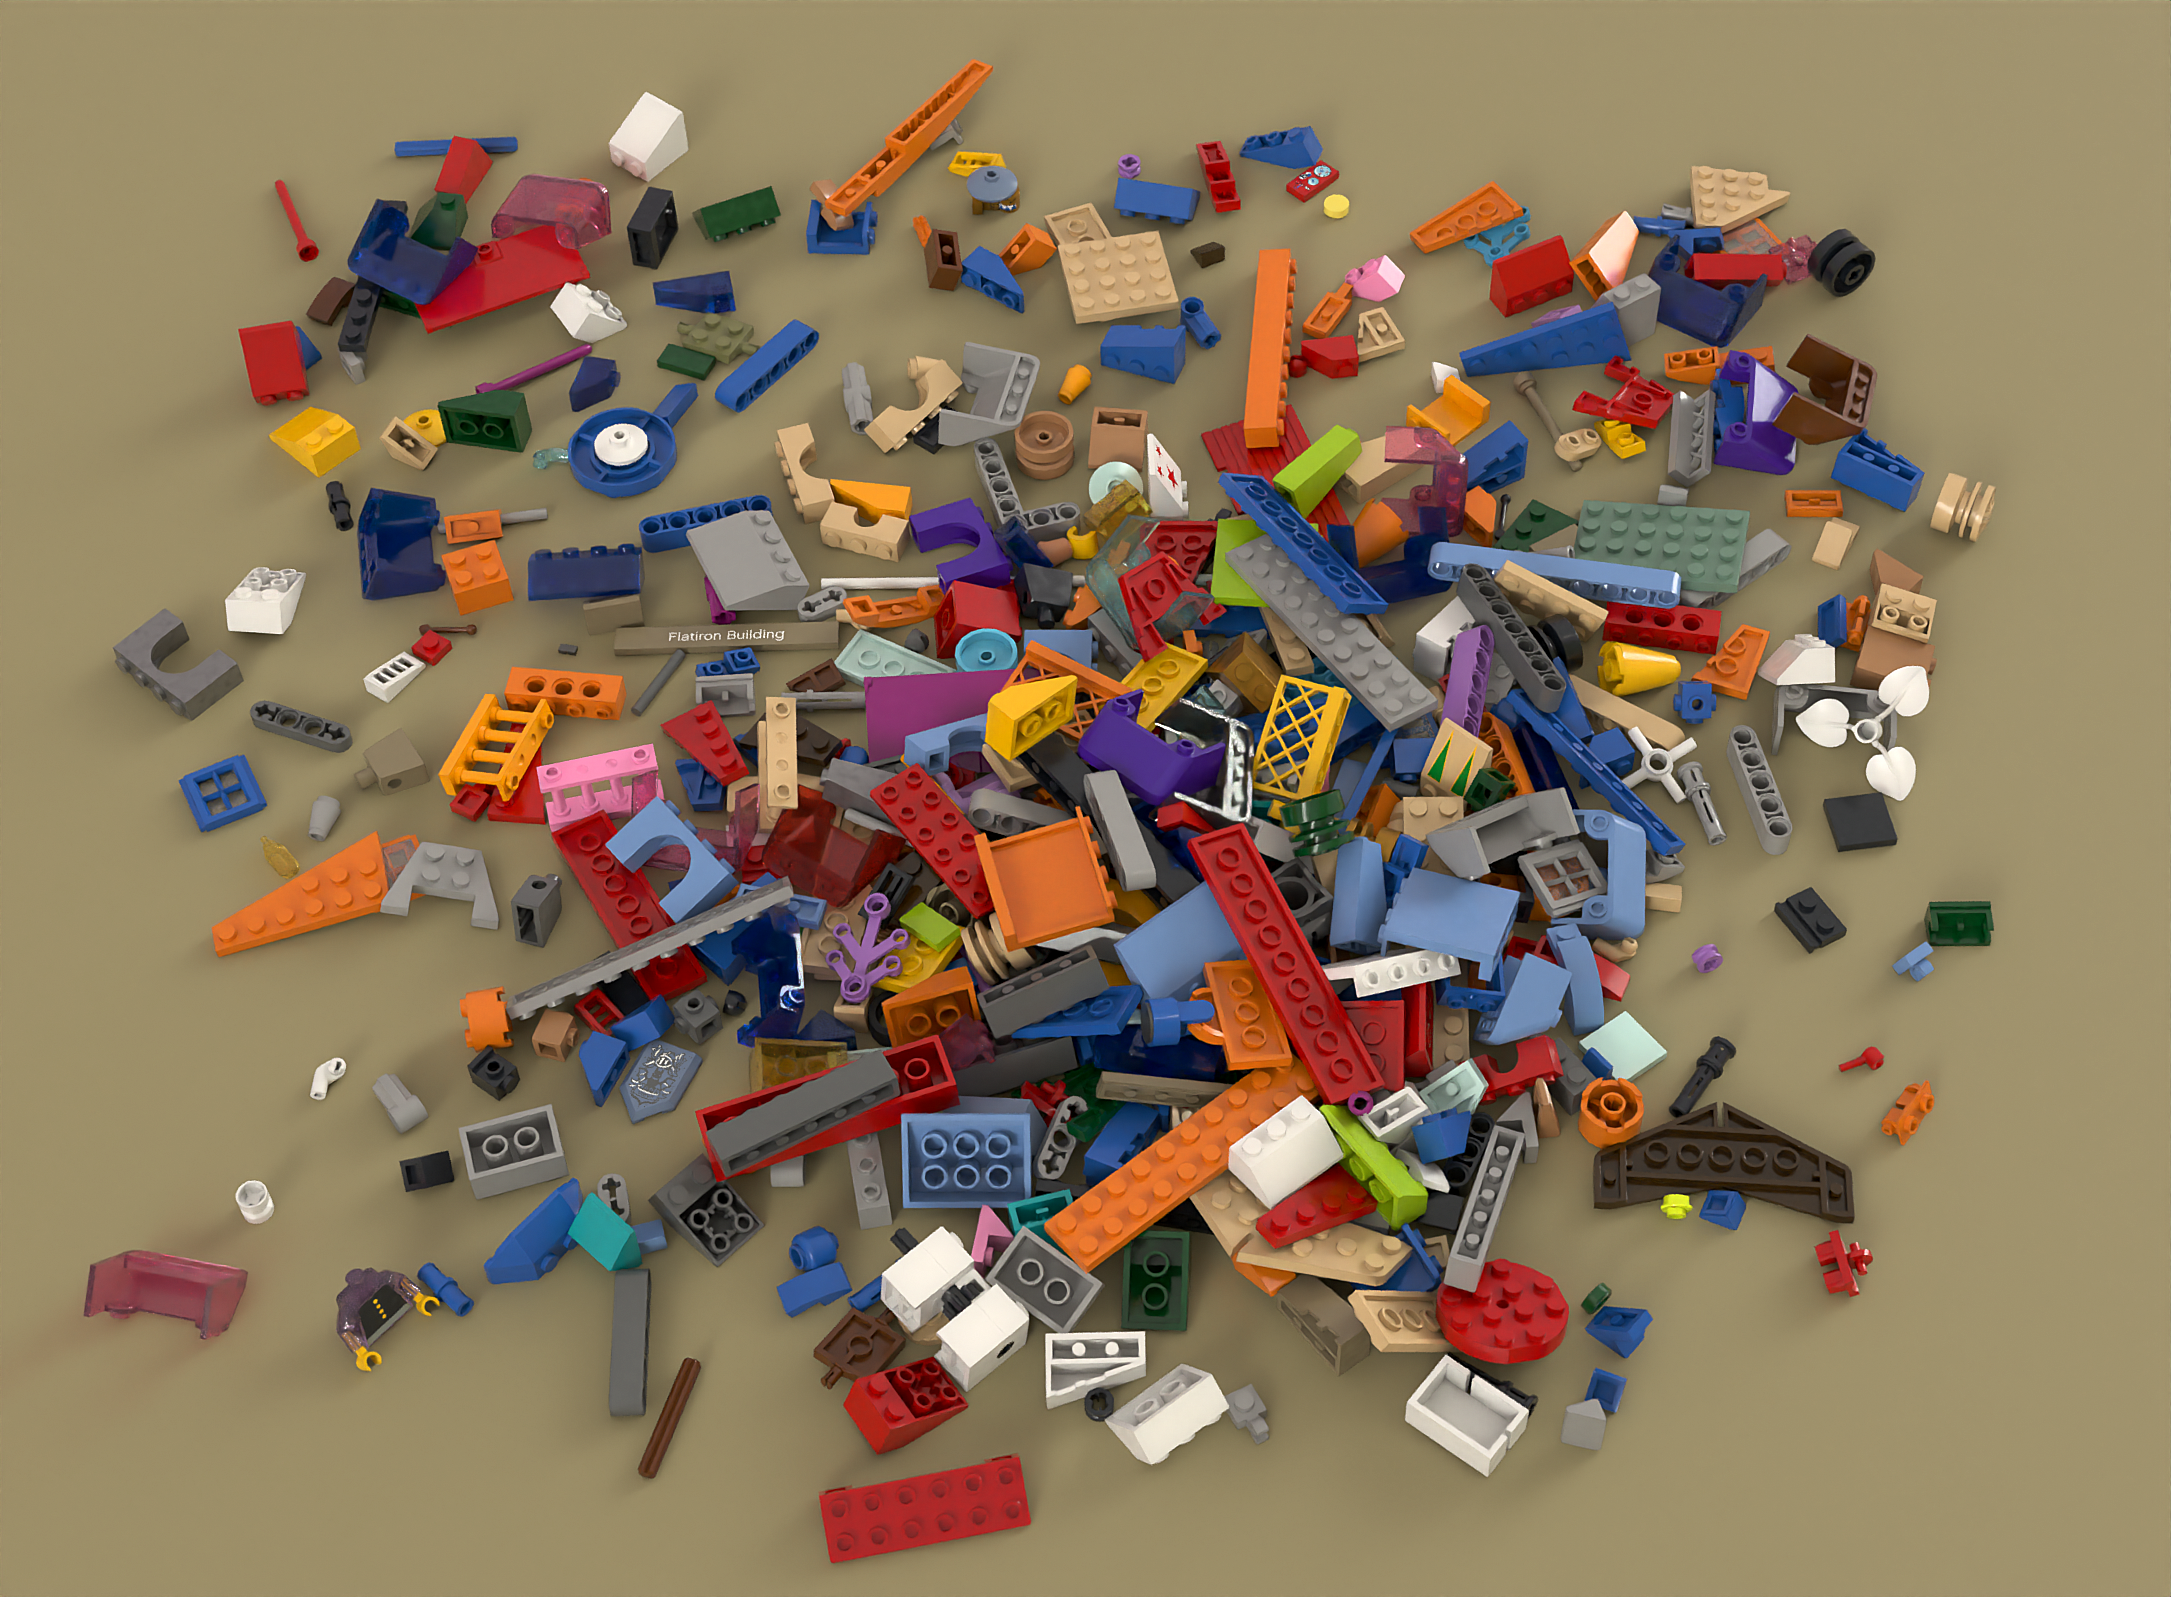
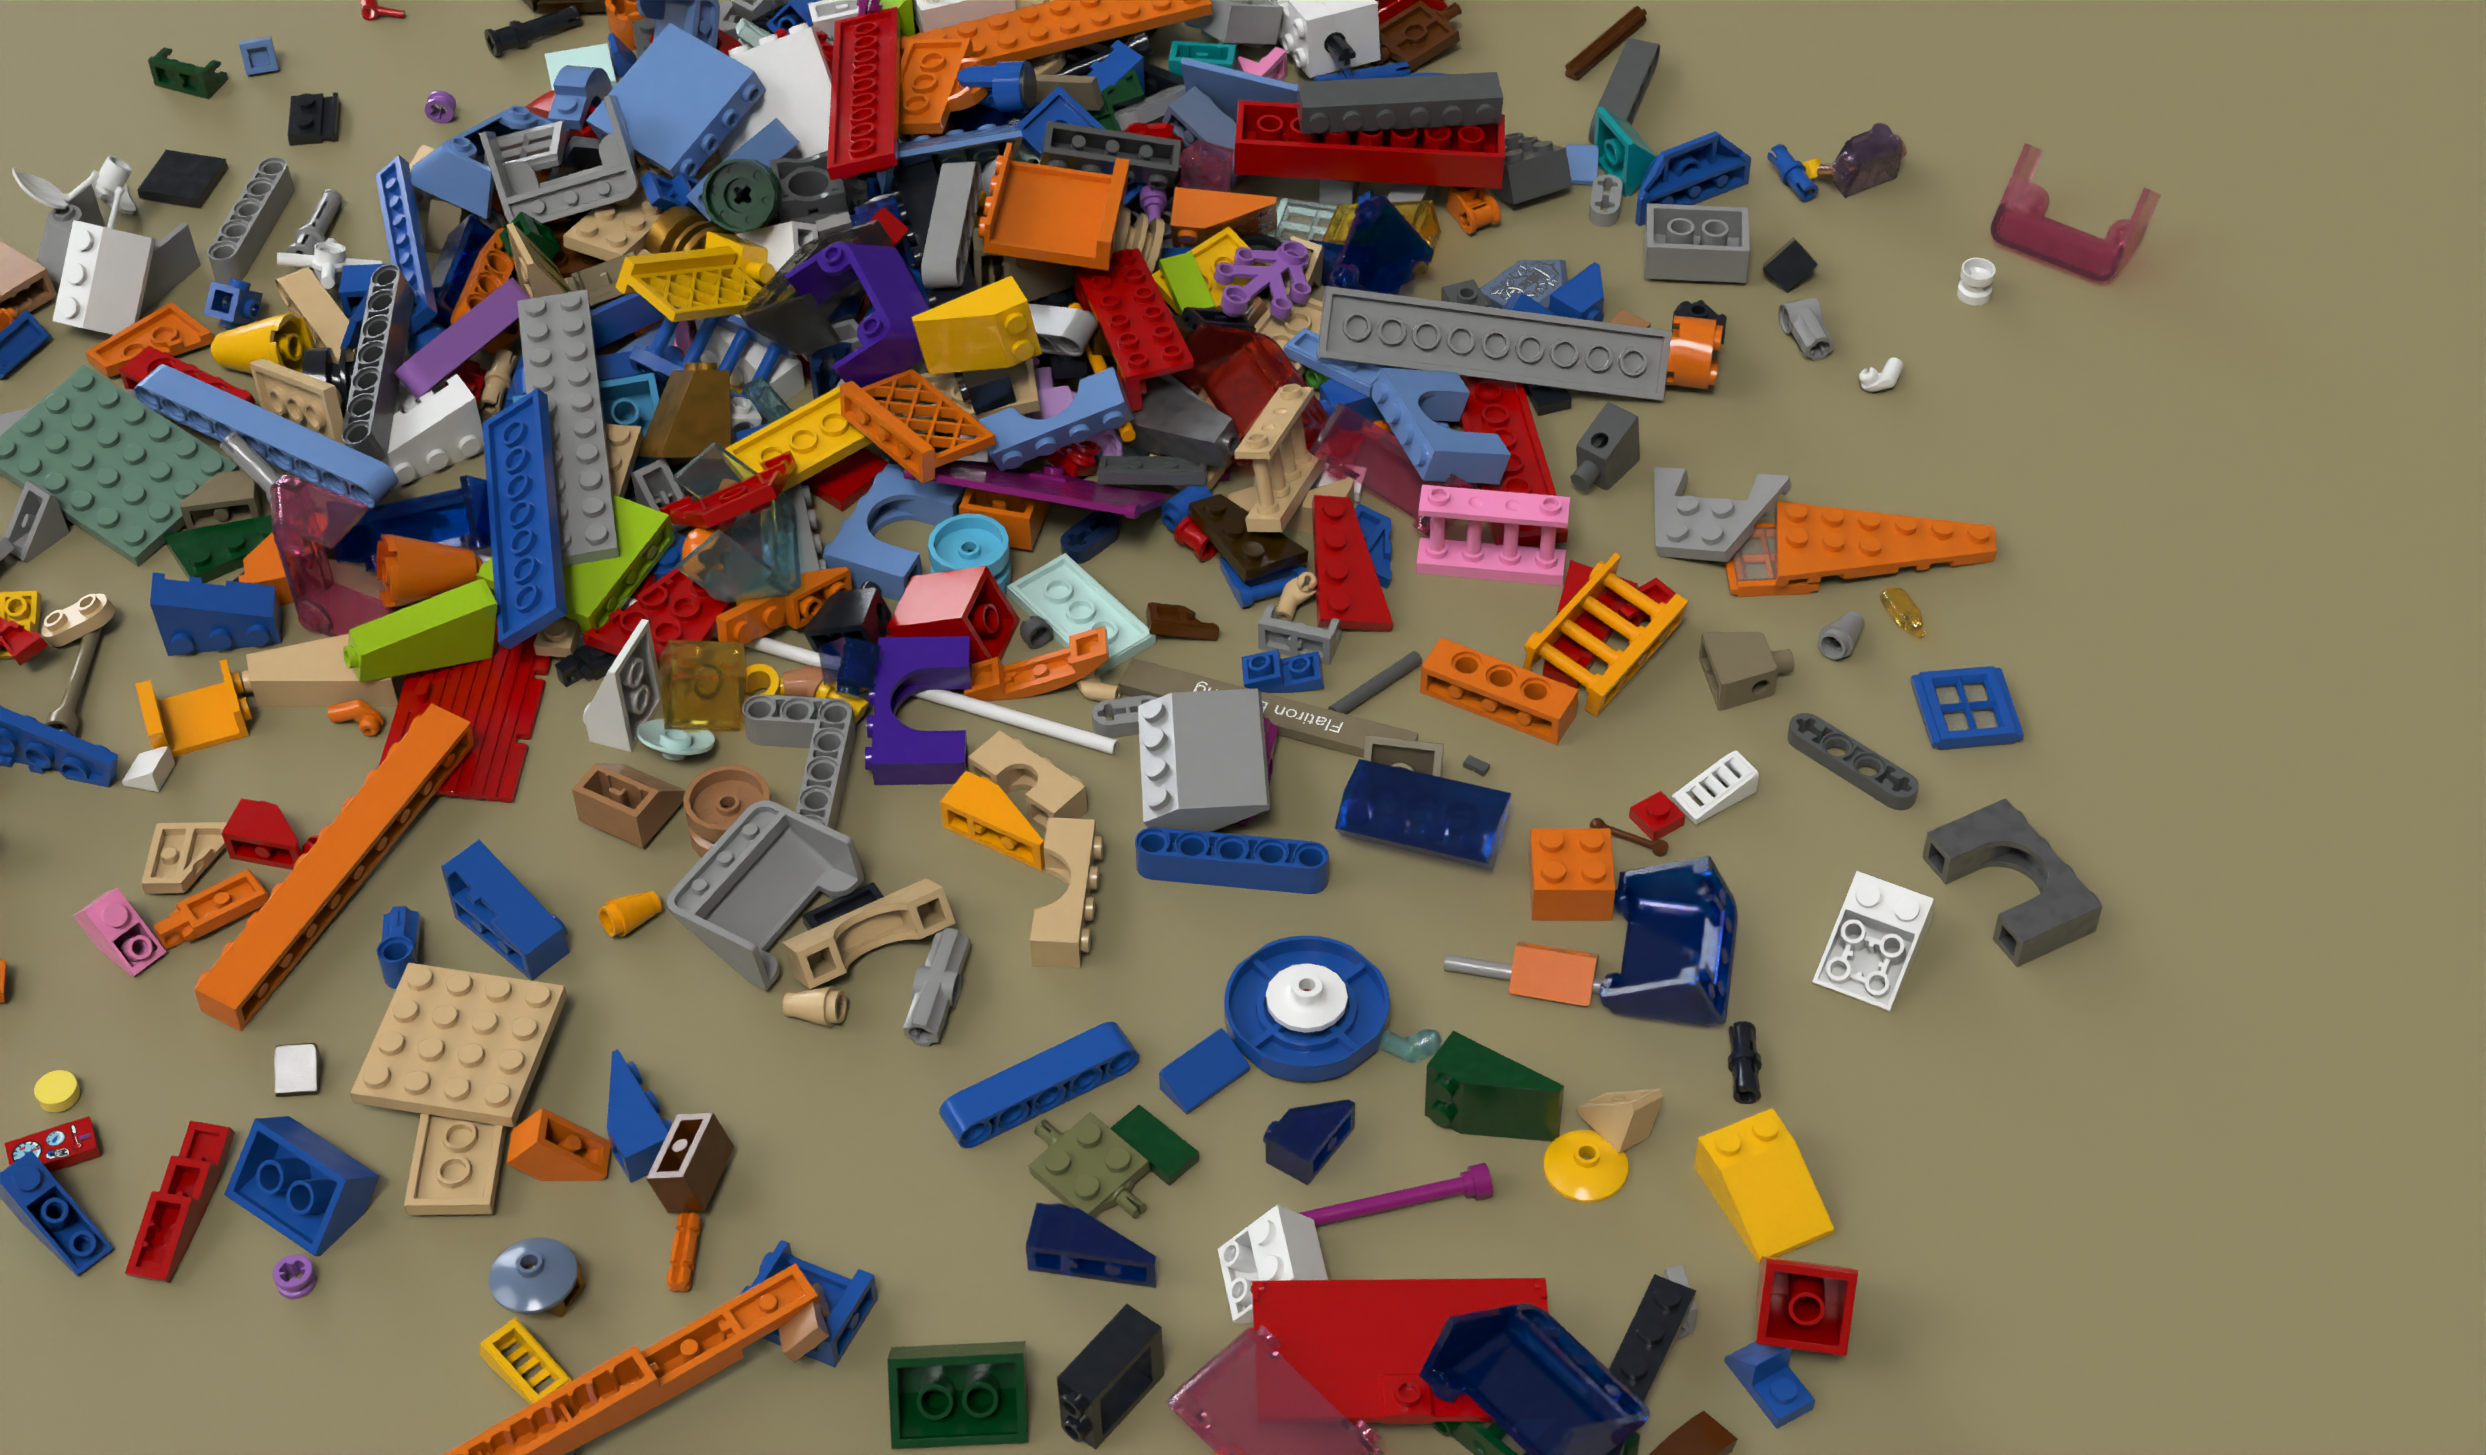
camera: 160 degrees left, 5 degrees down
(739, 723) = (1295, 593): none -> tan arm
(858, 700) = (1196, 598): light grey pin -> none
(1409, 782) = (599, 280): none -> dark tan hinge

